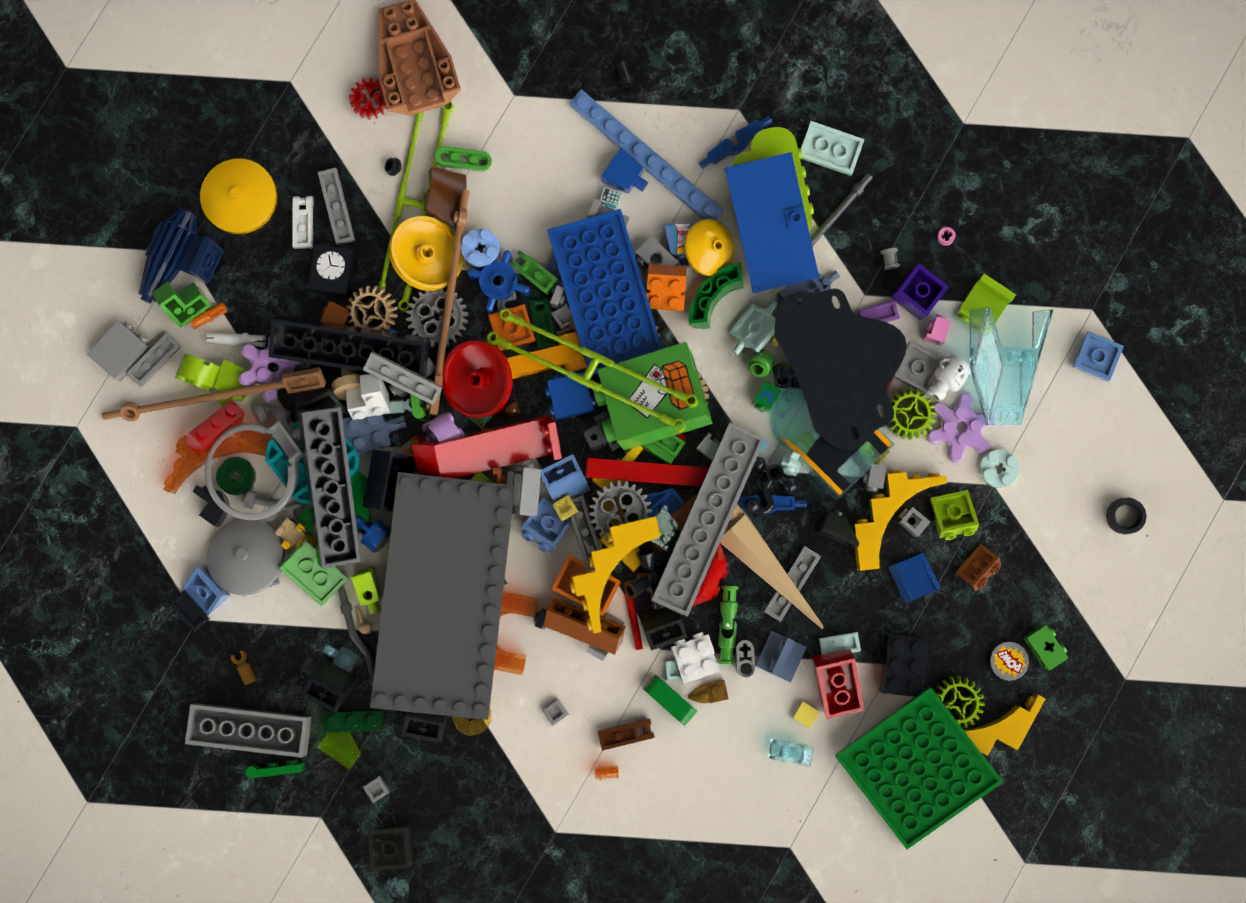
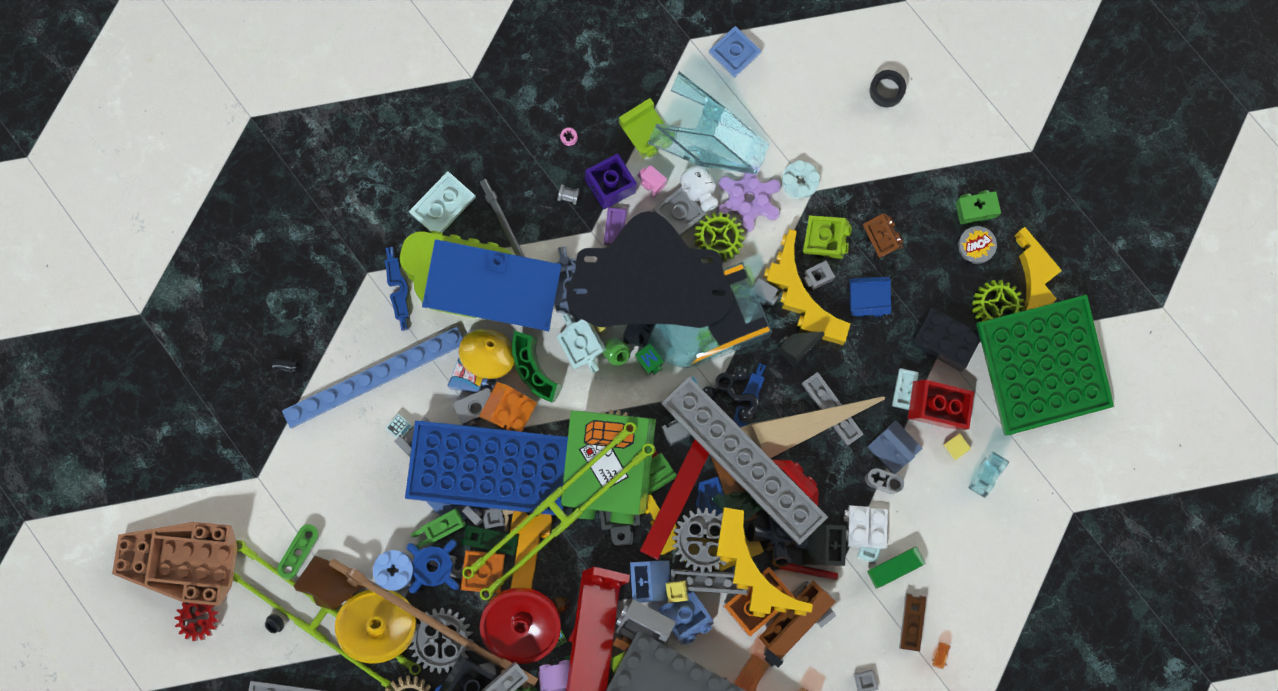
camera: 70 degrees left, 5 degrees down
(568, 397) = (572, 544): blue brick -> none
(624, 173) = (381, 403): blue torso -> none
(710, 692) = (903, 527): pearl gold plate -> none
(728, 611) = (835, 478): bright green piece -> none
(791, 464) = (722, 363): light aqua plate -> none

